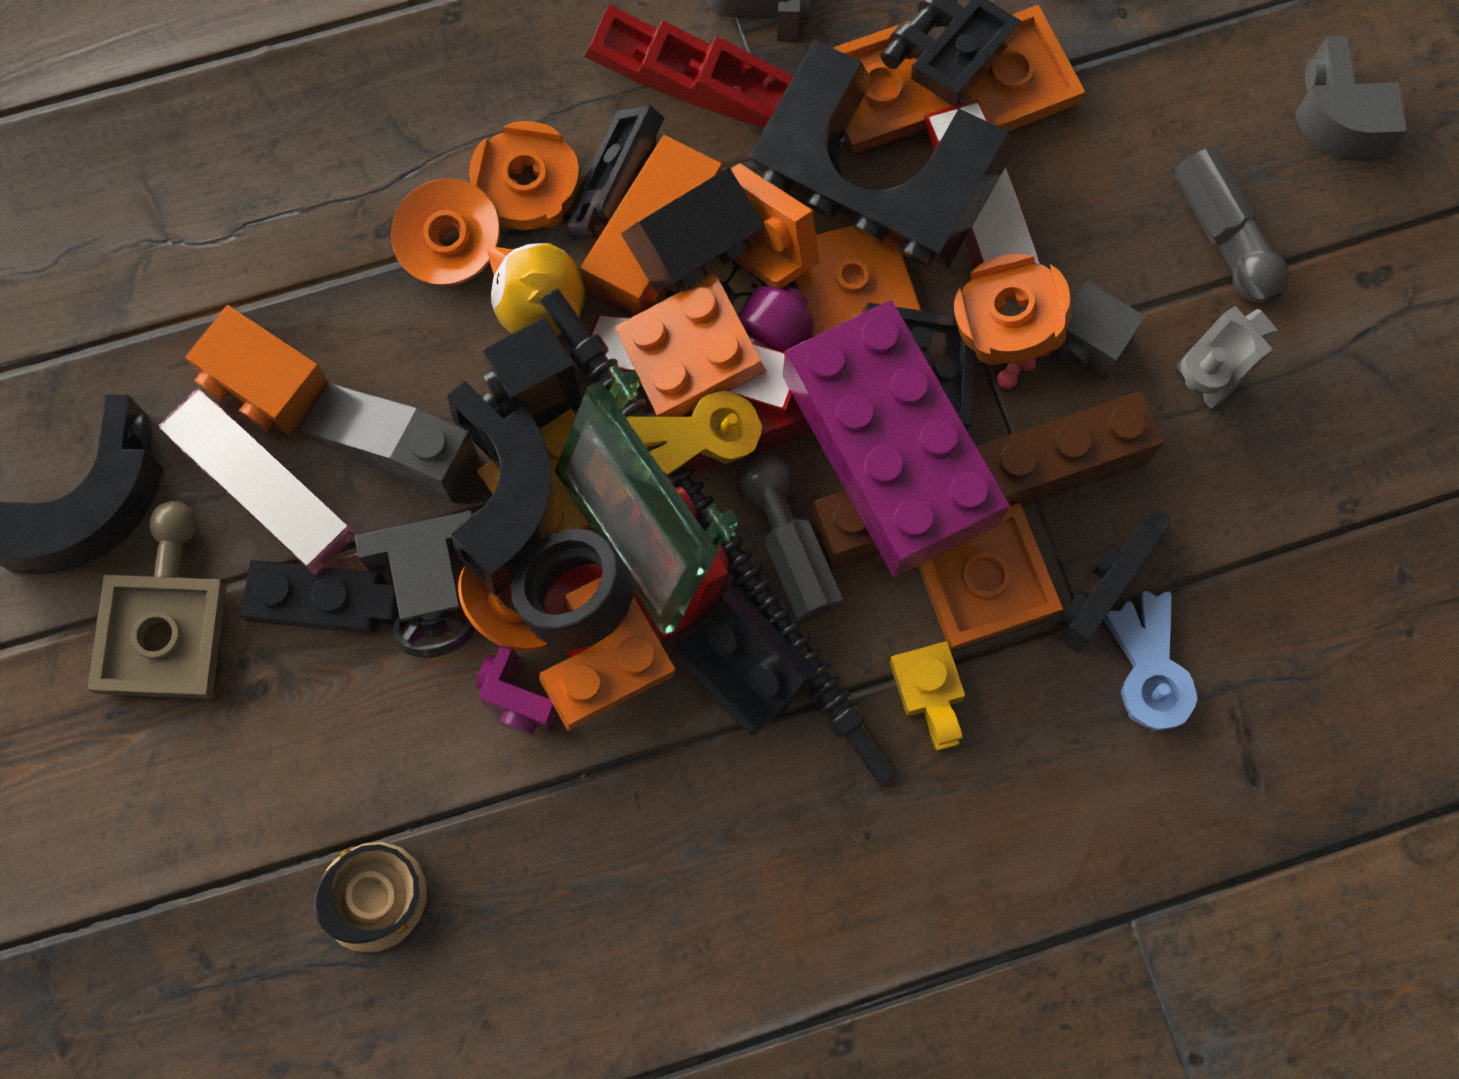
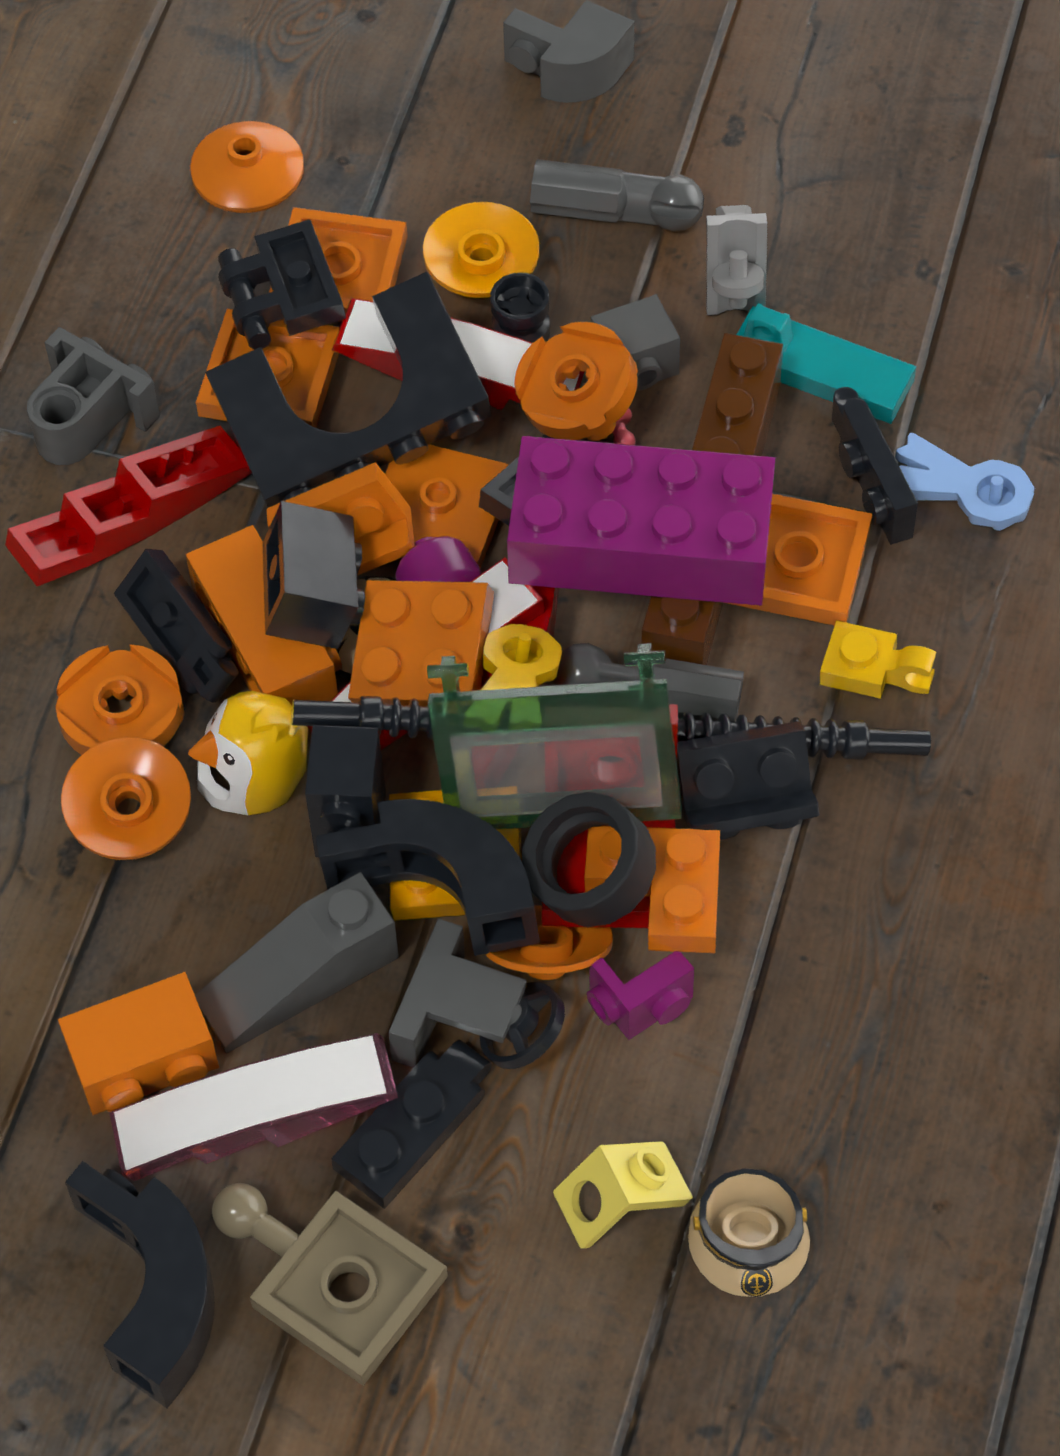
camera: 55 degrees left, 15 degrees down
(353, 783) = (628, 1180): none -> light yellow bracket
(1068, 216) = (521, 307): none -> black wheel
(1105, 142) = (474, 234): none -> light orange dish
(1191, 486) = (825, 363): none -> teal hinge

